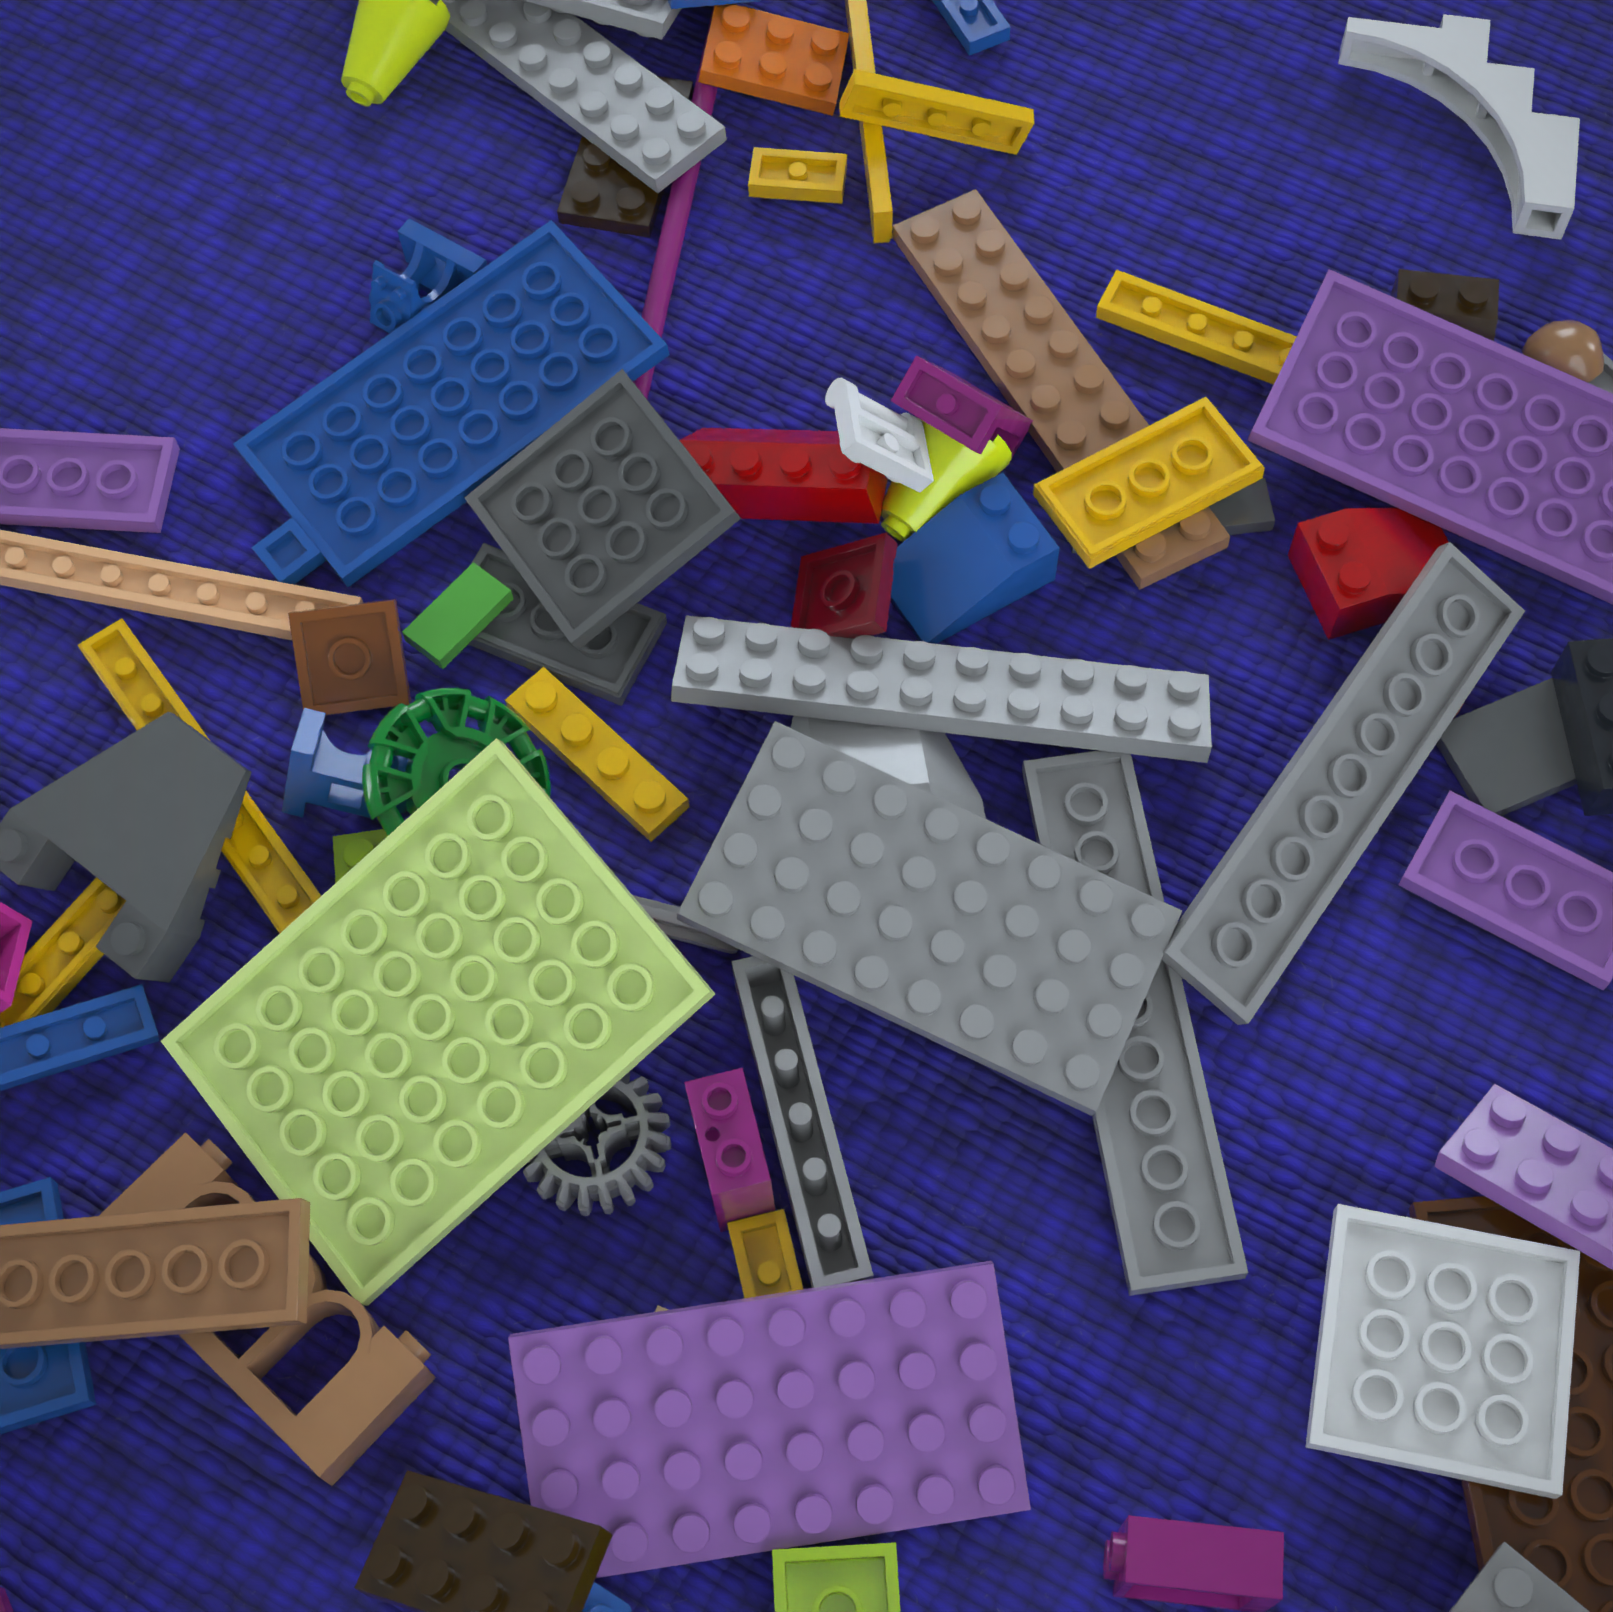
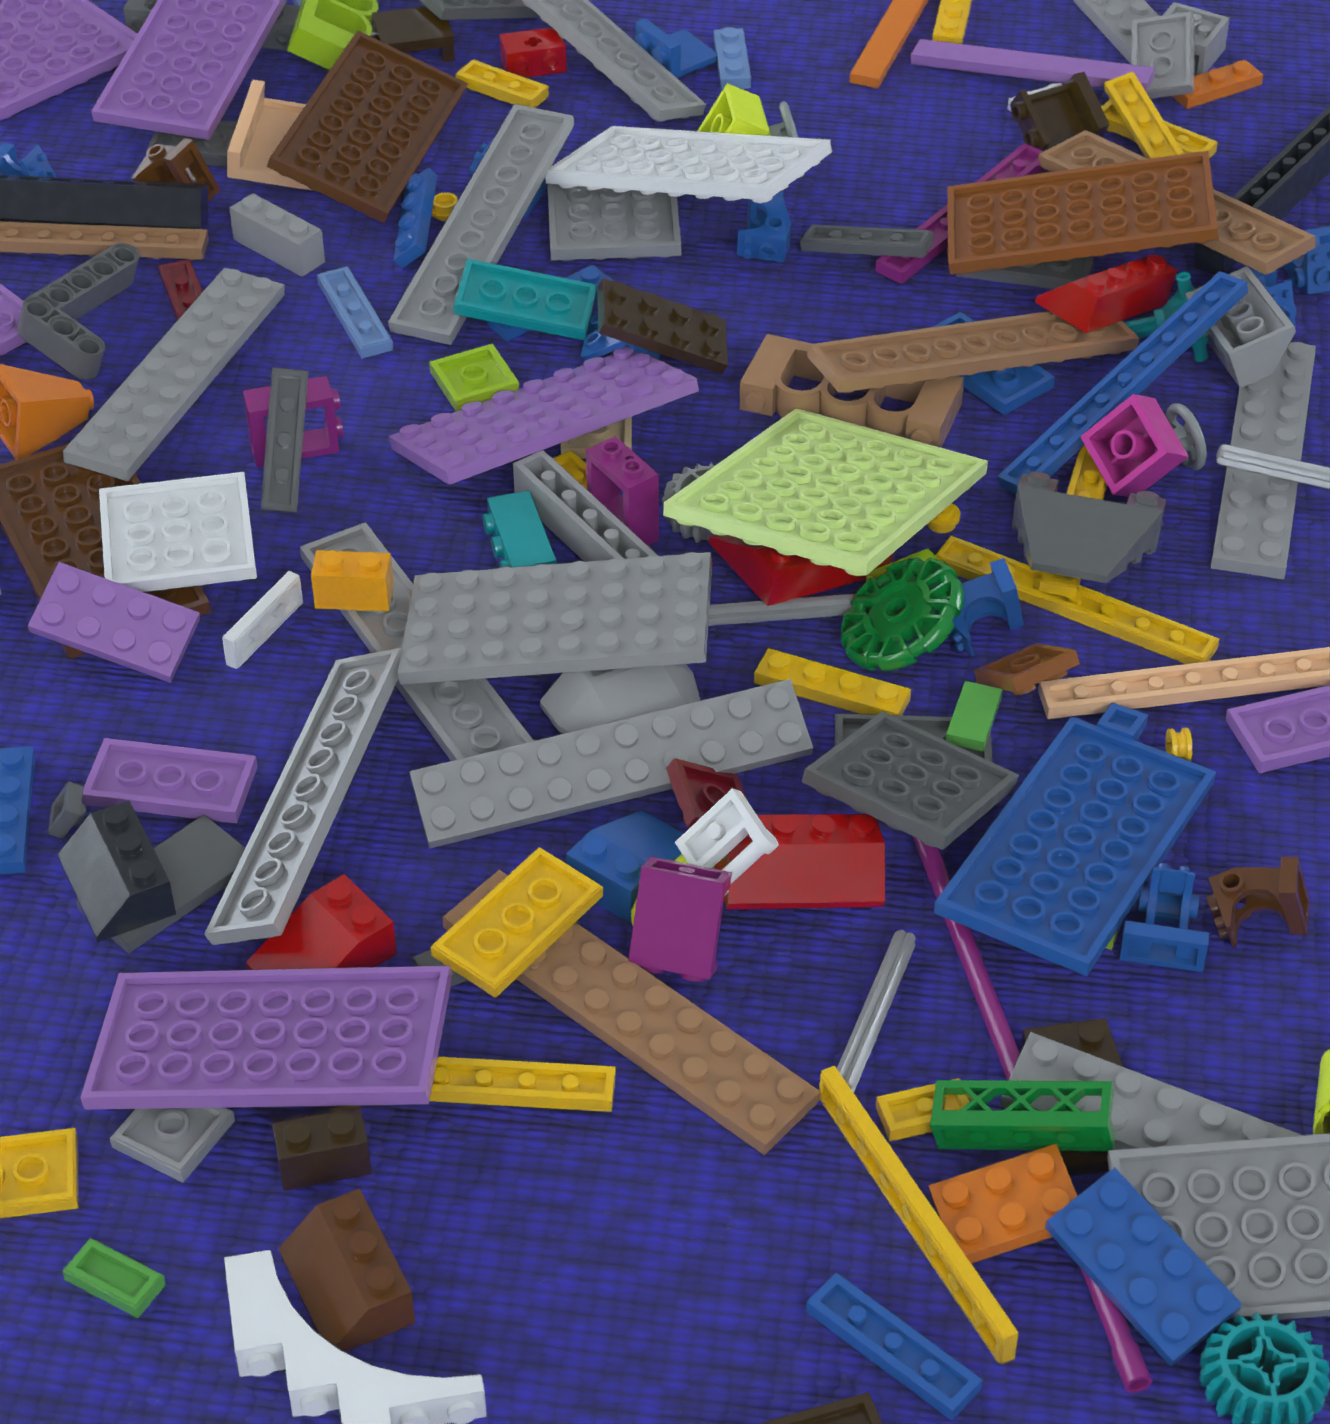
camera: 155 degrees right, 20 degrees down
(245, 501) = (1179, 743): none -> yellow bush
(304, 265) = (1260, 888): none -> reddish brown tile
(717, 94) = (1023, 1129): none -> green fence
(786, 301) = (876, 1007): none -> light grey axle
(909, 1160) = (517, 531): none -> teal brick
(936, 112) = (824, 1164): yellow plate -> none
(1197, 1118) = (352, 580): none -> light orange piece
(1228, 1478) = (284, 440): none -> dark grey tile
(1336, 1139) = (262, 620): none -> white tile
(1440, 186) = (347, 1274): none -> reddish brown slope
(1567, 347) = (209, 1146): medium nougat hair -> none

